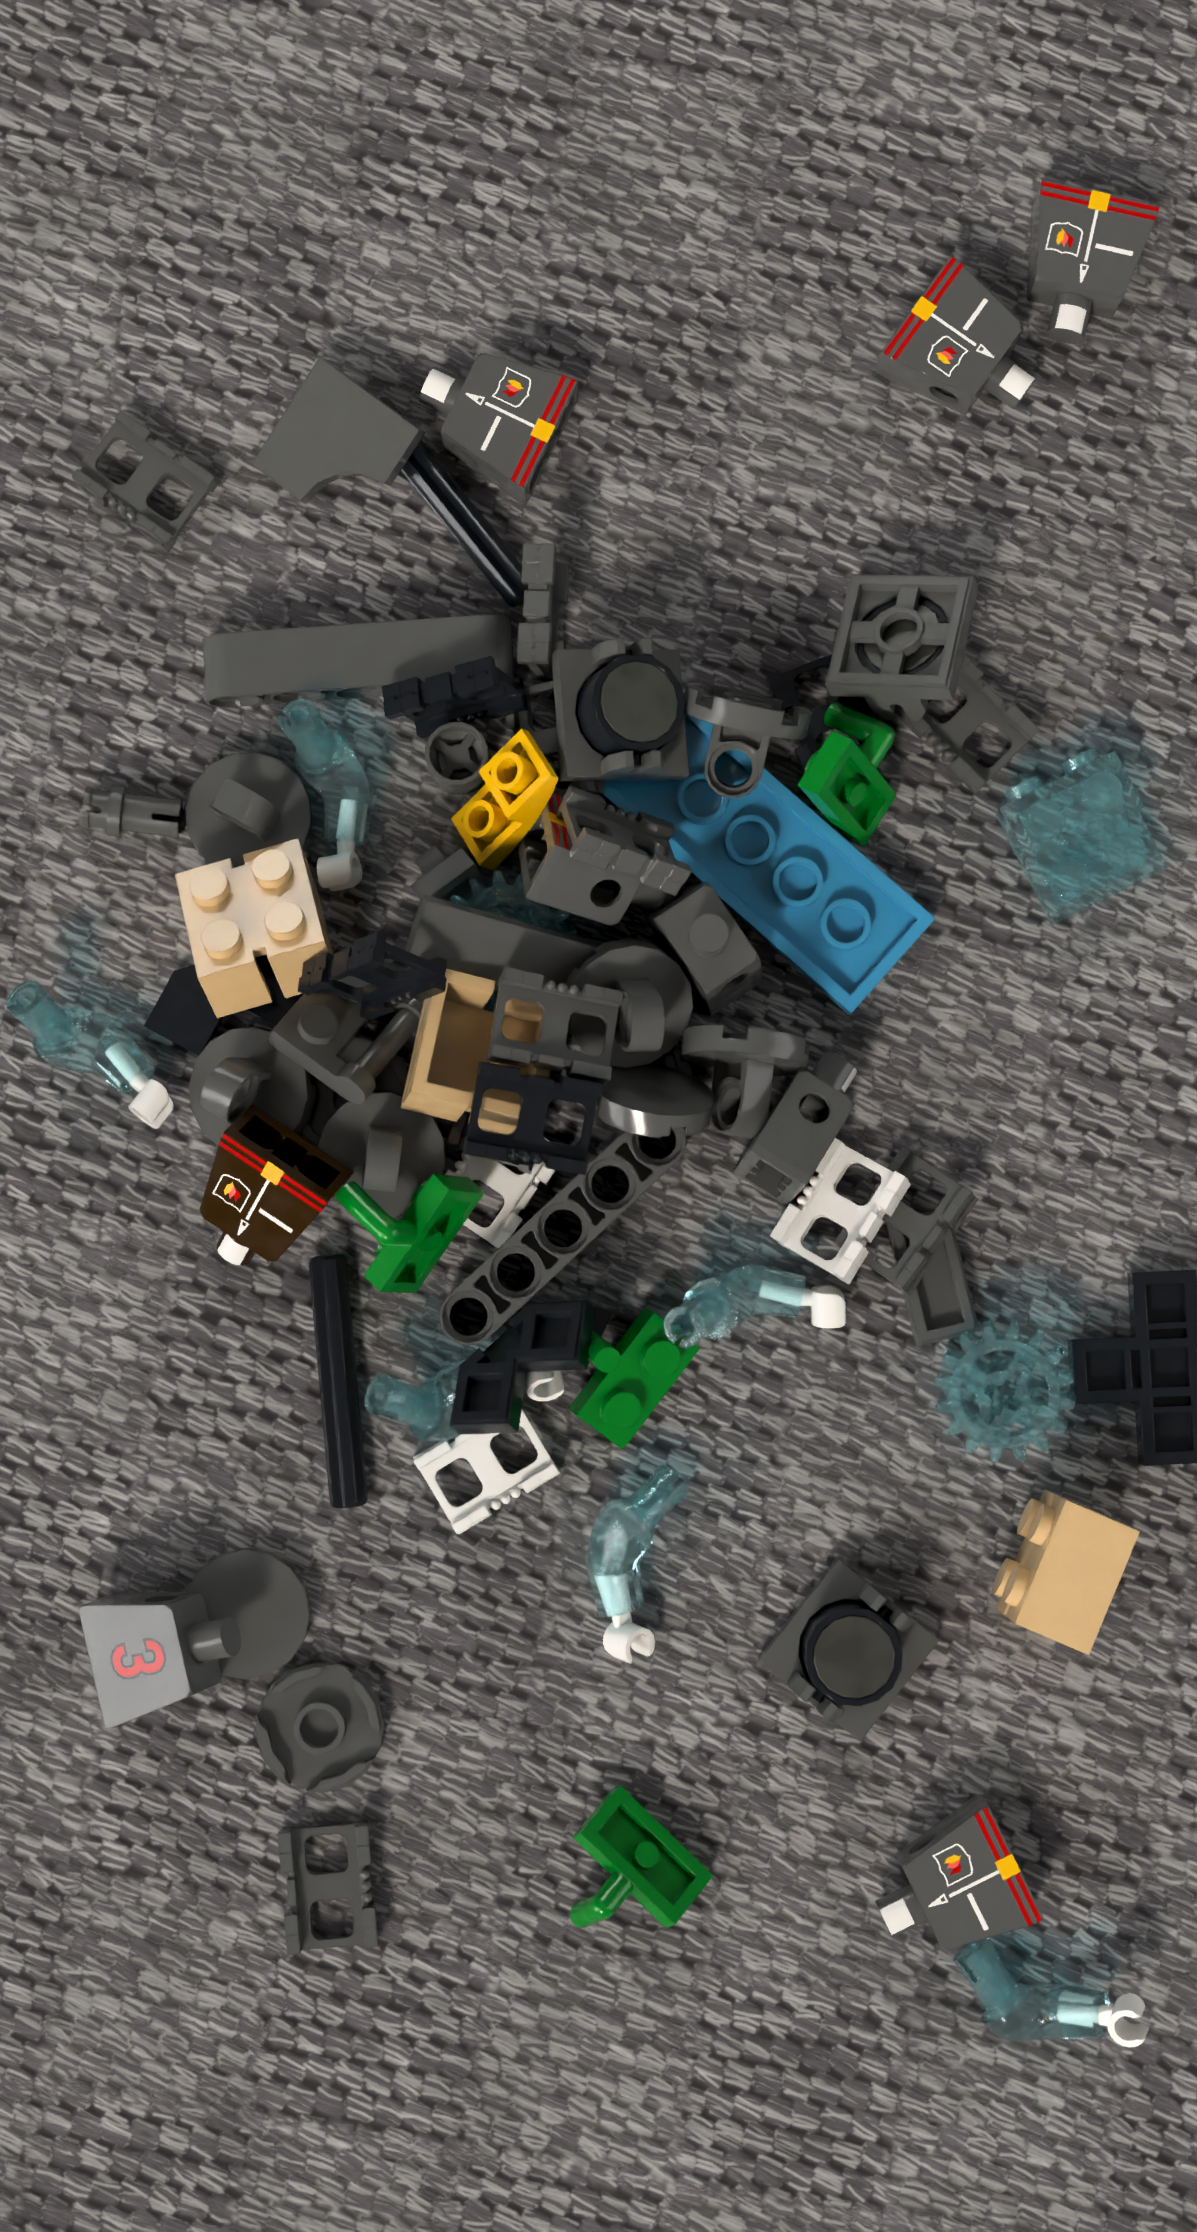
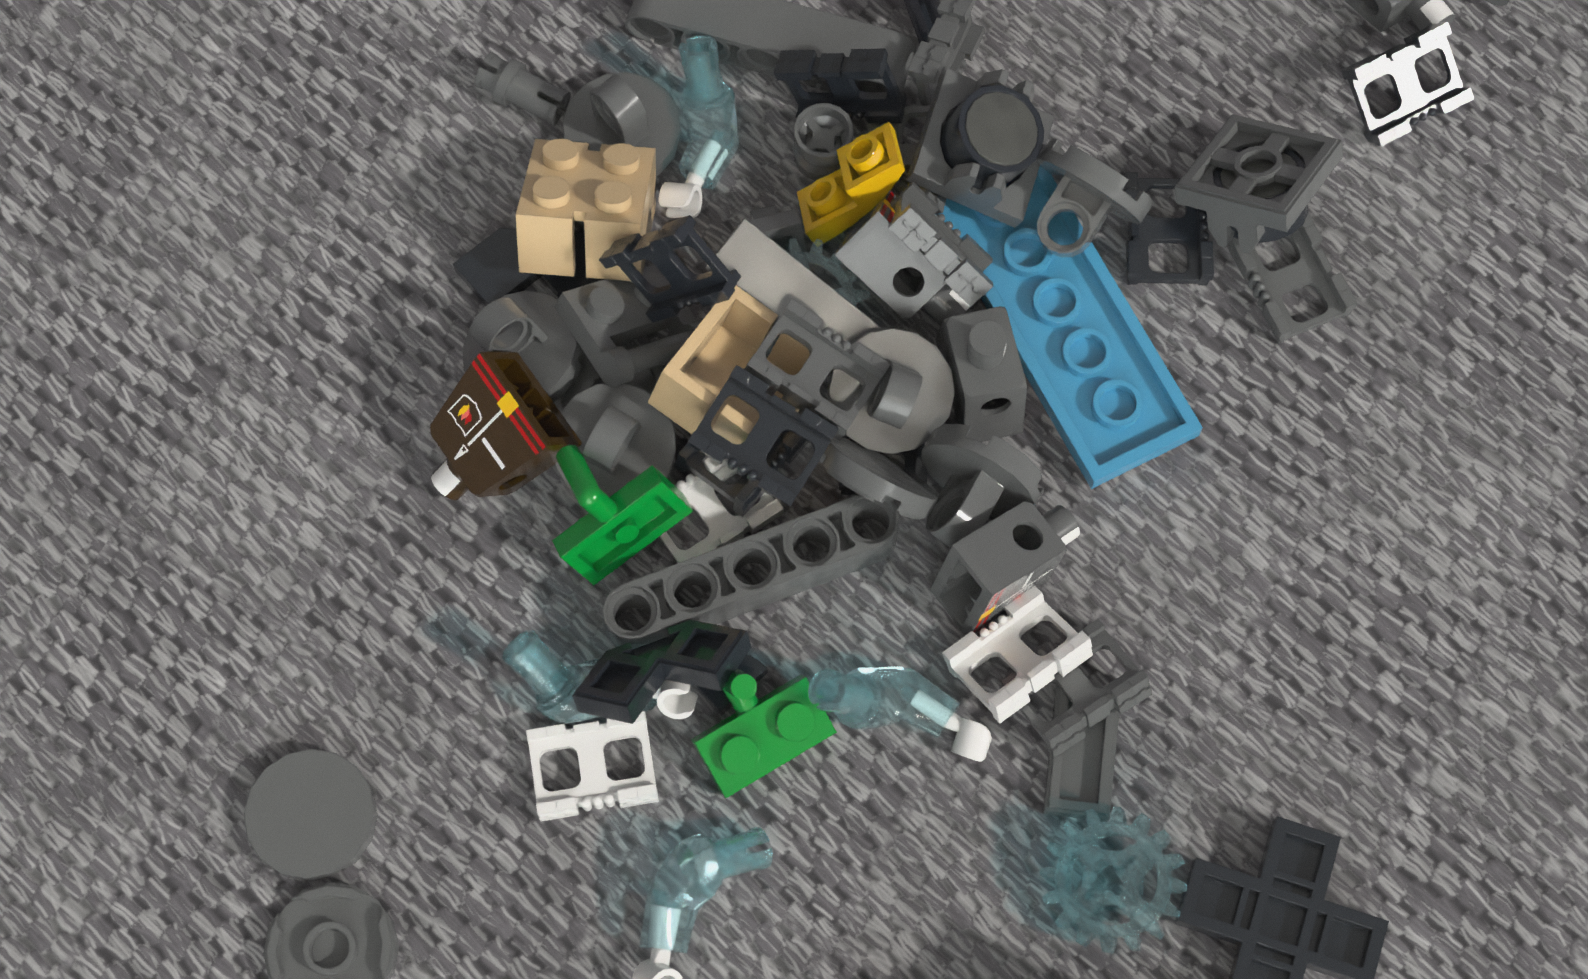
camera: 25 degrees right, 15 degrees down
(91, 1044) = (397, 262): clear light blue arm -> none
(153, 1650) = (207, 810): torso -> none
(338, 1381) = (488, 636): black axle -> none
(845, 778) = (1162, 275): green plate -> none
(1022, 486) = (1412, 102): none -> piece
(1079, 834) = (1363, 407): clear light blue plate -> none

